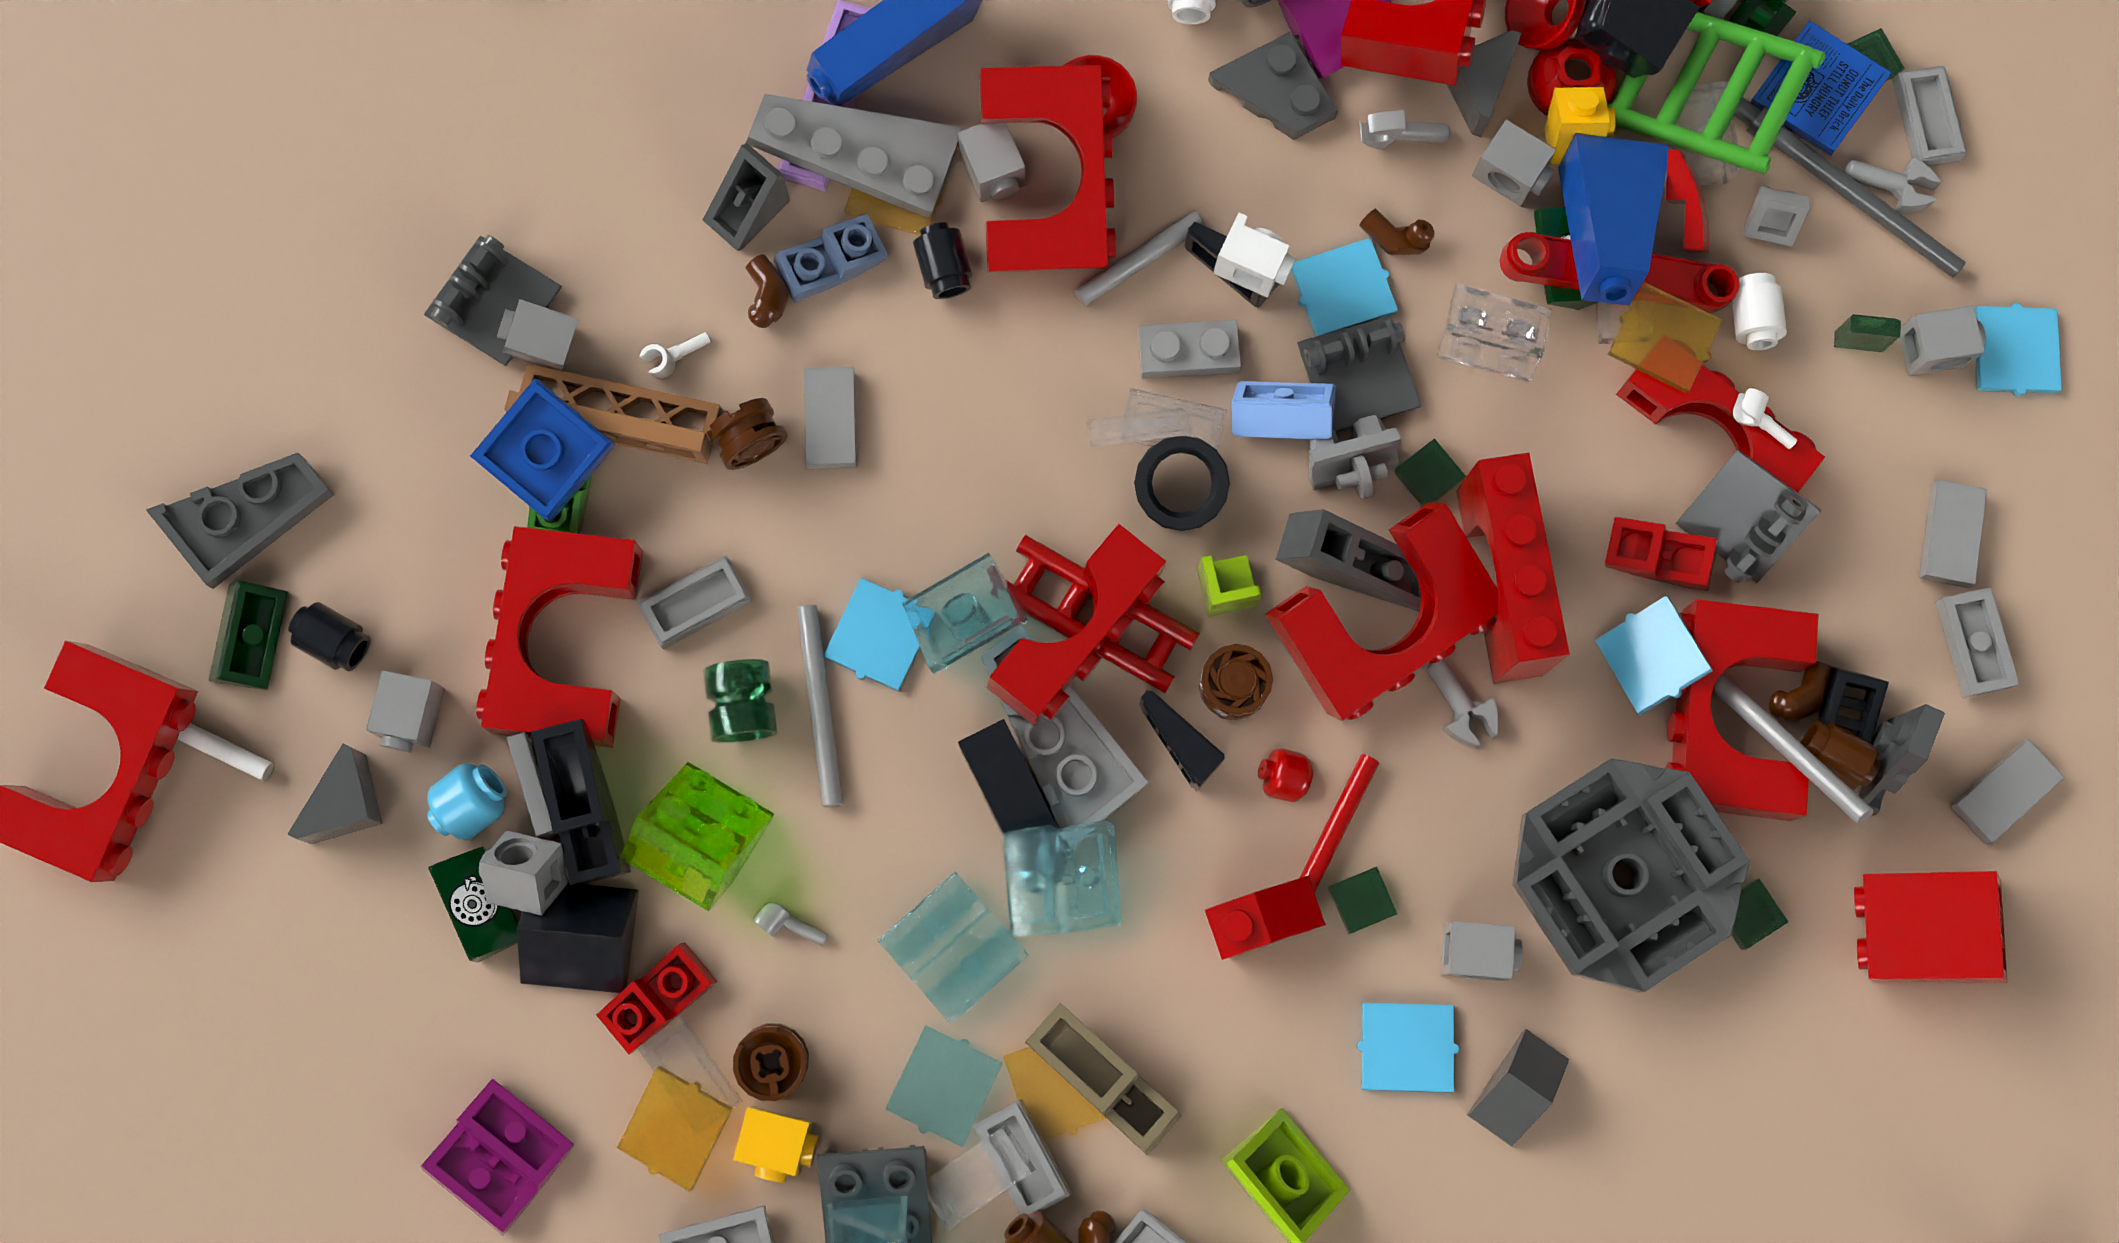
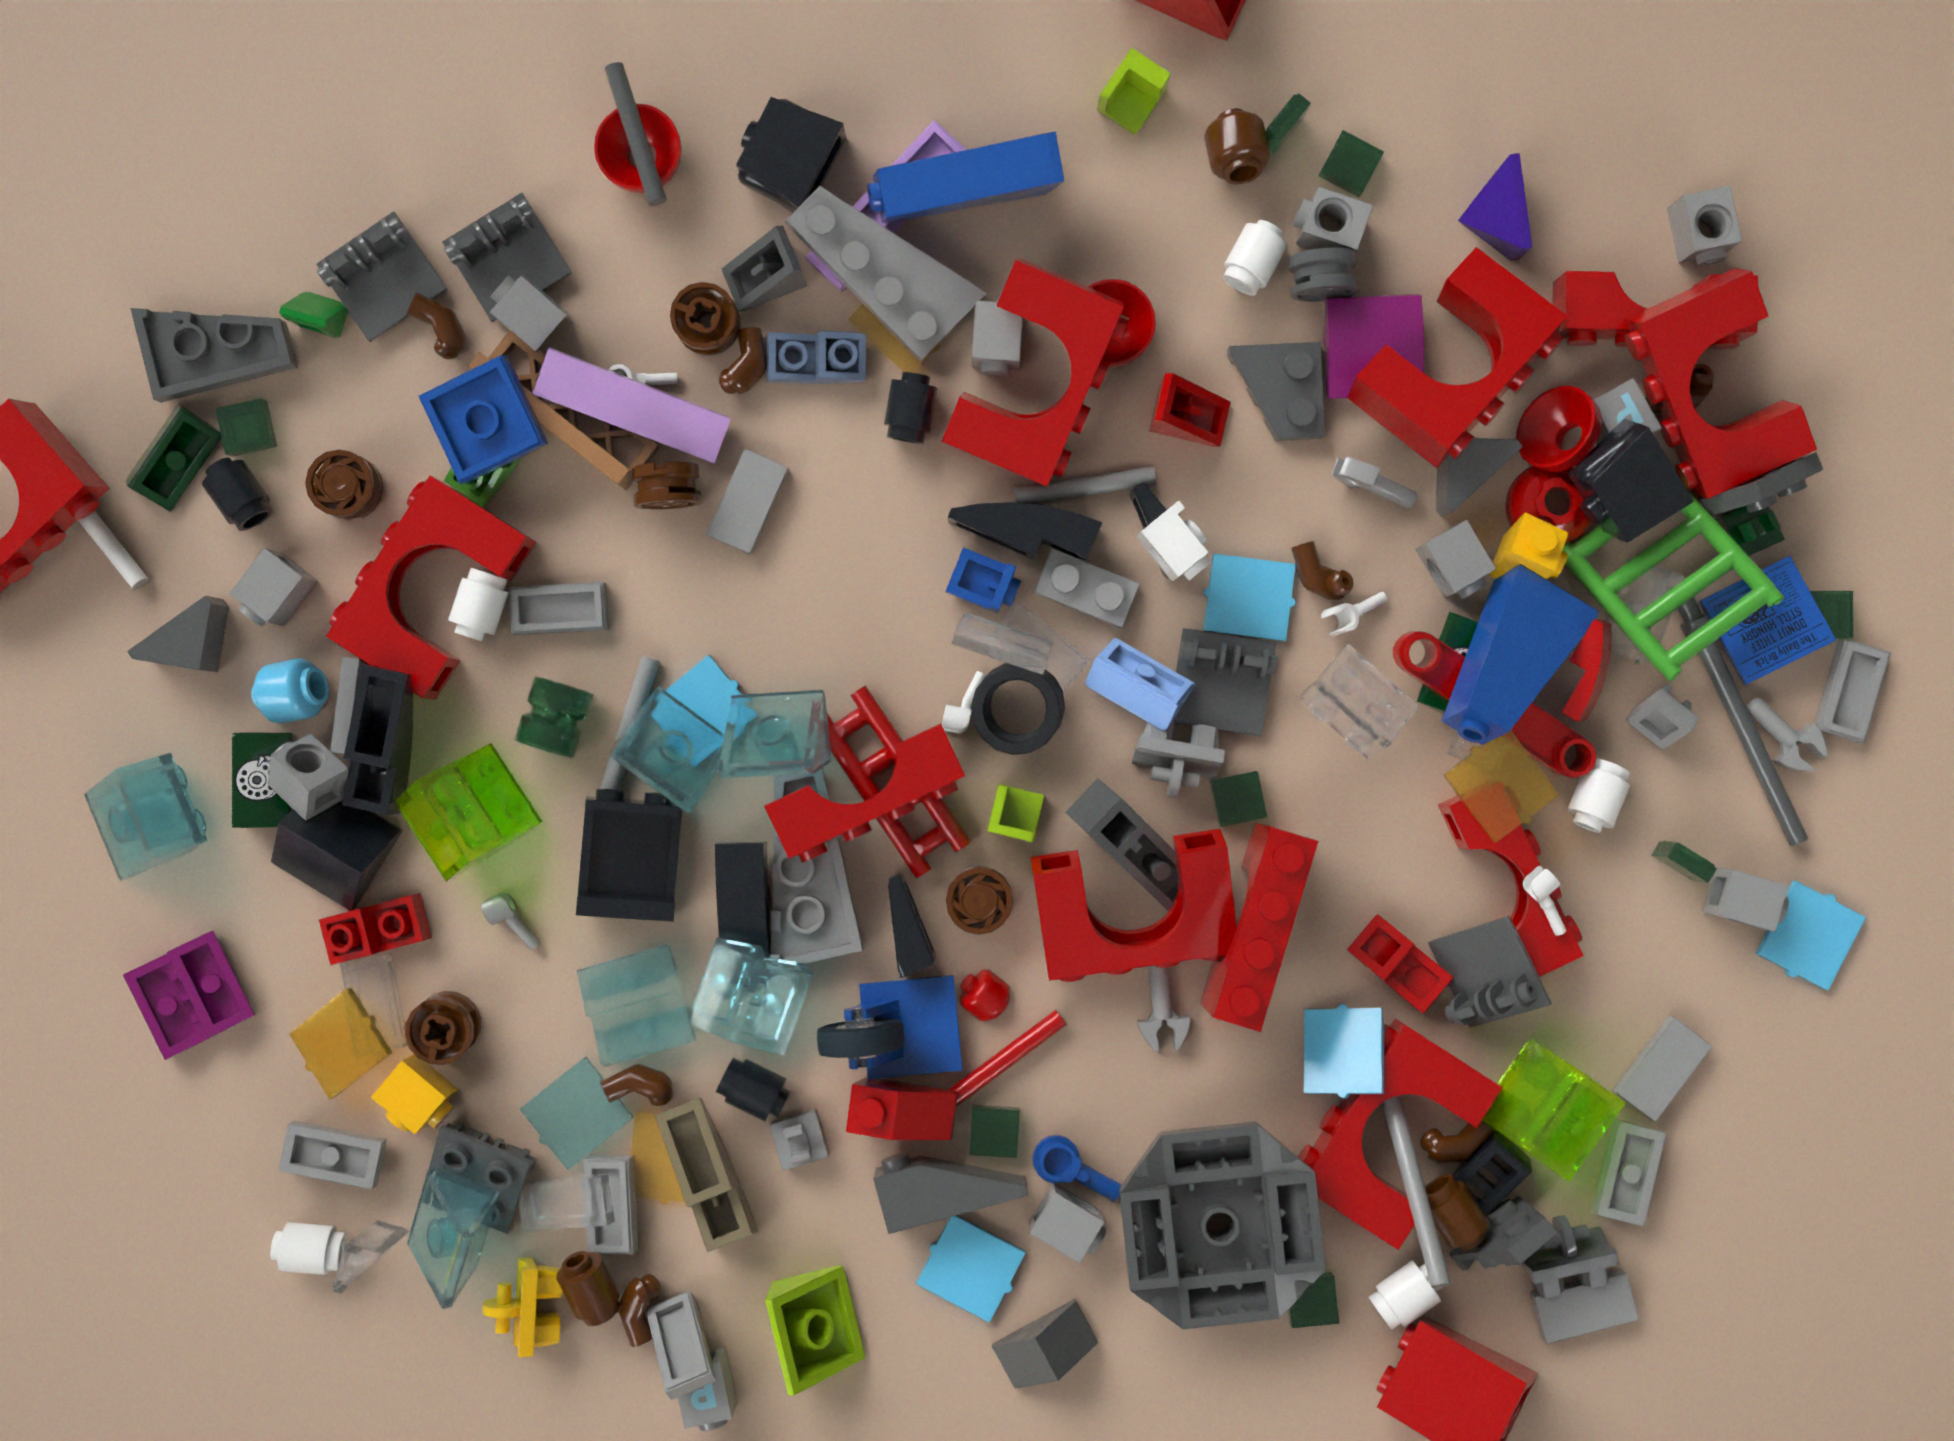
camera: 35 degrees right, 10 degrees up
(308, 573) = (246, 427): none -> clear green tile
(331, 436) = (315, 313): none -> green slope
(373, 995) = (146, 815): none -> clear light blue slope
(379, 372) = (380, 275): none -> dark grey hinge
(431, 580) = (344, 484): none -> reddish brown wheel
(458, 384) = (444, 322): none -> reddish brown arm
(566, 125) = (613, 149): none -> red piece
(568, 128) = (635, 133): none -> dark grey bar
(616, 630) = (478, 604): none -> white brick
(678, 376) = (631, 405): none -> lavender tile
(709, 268) = (705, 318): none -> reddish brown wheel
(718, 85) = (789, 152): none -> black torso
(870, 675) = (670, 749): none -> clear light blue slope
(876, 799) = (629, 857): none -> black panel
(990, 1018) = (642, 1080): none -> reddish brown arm
(1091, 384) = (983, 581): none -> blue bracket
(1106, 315) = (1027, 526): none -> black slope
(1109, 970) = (753, 1089): none -> black brick
(1131, 518) = (957, 718): none -> white hand
(1177, 1002) = (799, 1139): none -> light grey tile
(1200, 146) = (1189, 412): none -> red slope
(1223, 841) = (898, 1029): none -> blue plate
(1331, 984) = (934, 1189): none -> dark grey slope
(1439, 897) = (1059, 1161): none -> blue plate
(1443, 258) = (1349, 614): none -> white hand
(1836, 860) = (1405, 1295): none -> white brick
(1875, 615) = (1552, 1109): none -> clear neon green slope
(1961, 744) = (1571, 1253): none -> dark grey hips

